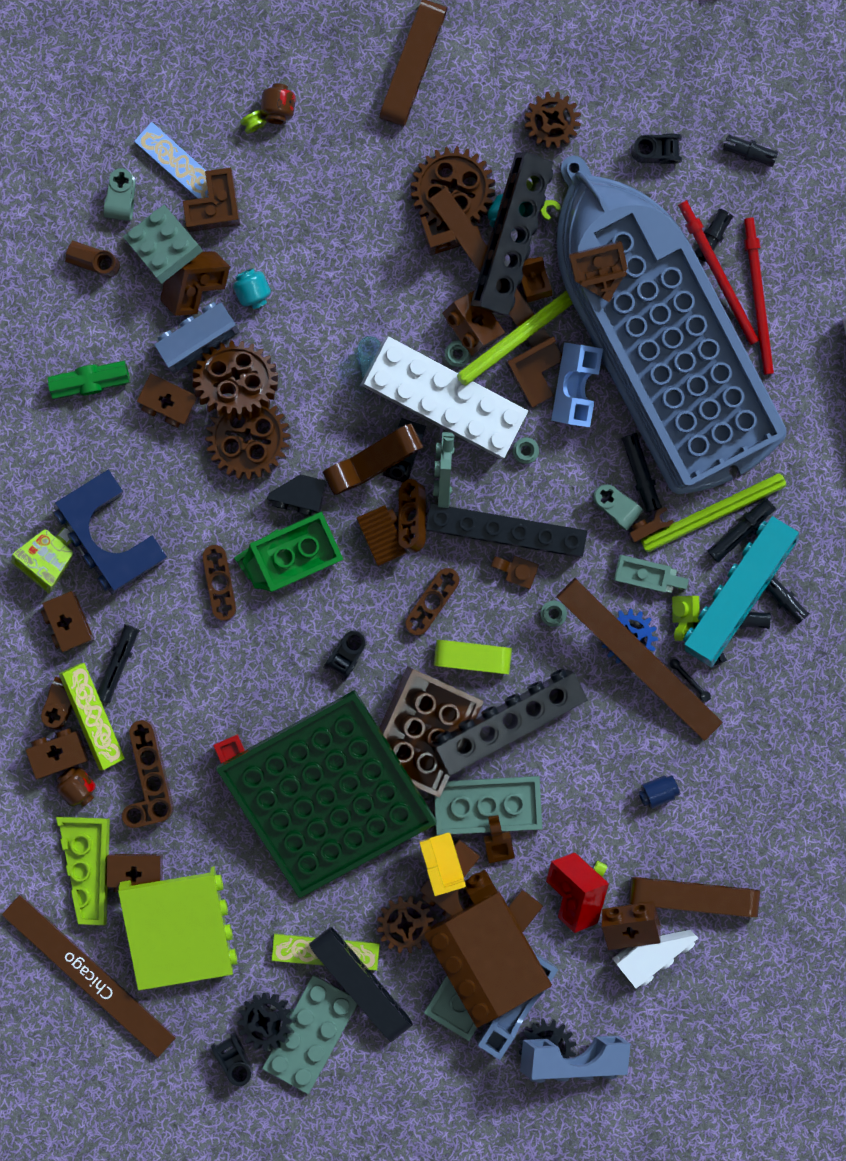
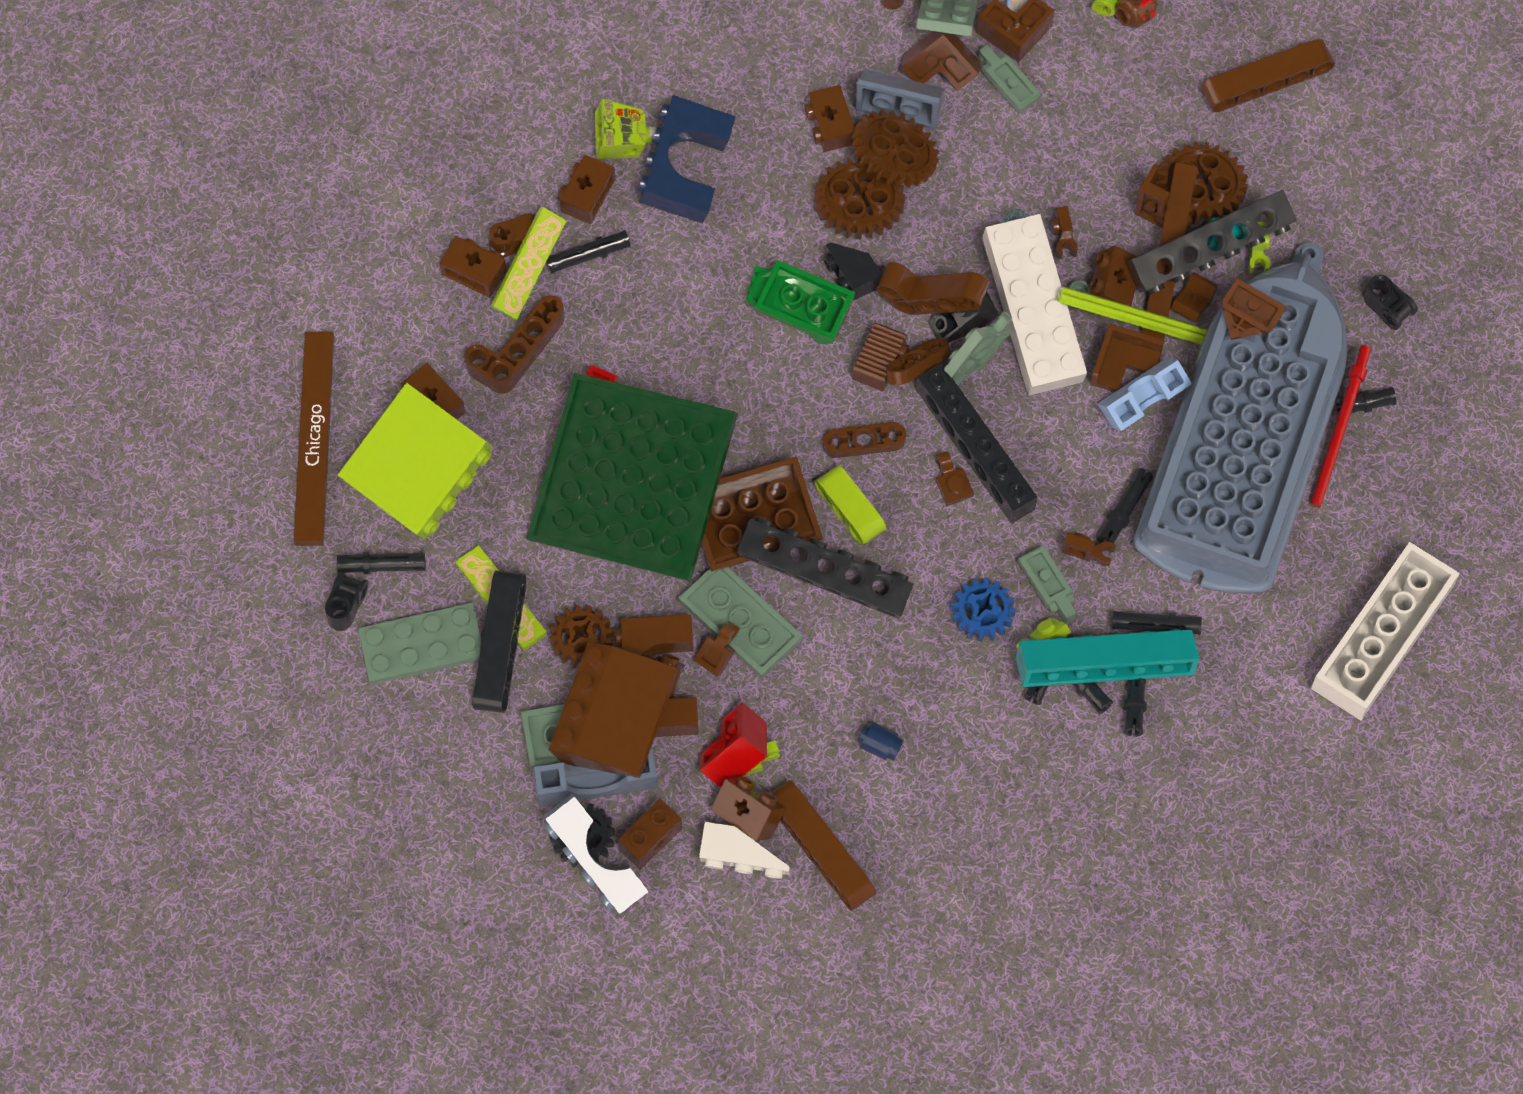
camera: 45 degrees right, 20 degrees down
(75, 787) = (460, 300): reddish brown head -> none
(86, 854) = (419, 344): lime wing -> none
(88, 380) = (791, 52): green piece -> none
(227, 1011) = (381, 562): none -> black pin
(229, 588) = (725, 261): reddish brown beam -> none
(250, 246) = (1008, 79): none -> sand green hinge
(251, 288) = (977, 105): teal head -> none
(270, 1031) = (400, 596): black gear -> none
(345, 655) = (758, 411): black piece -> none
(399, 318) = (1062, 227): none -> reddish brown plate
(442, 864) = (657, 611): yellow panel -> none
(526, 442) = (1054, 400): sand green plate -> none
(553, 605) = (945, 530): sand green plate -> none
(561, 127) = (1336, 200): reddish brown gear -> none
(587, 1003) = (650, 834): none -> reddish brown brick
(620, 509) = (1080, 513): sand green piece -> none
(639, 659) = (973, 626): reddish brown tile -> none
(704, 695) = (995, 713): black hinge -> none
(713, 512) = (1149, 590): lime axle -> none
(750, 150) = (1460, 371): black pin -> none
(752, 245) = (1387, 438): red bar -> none

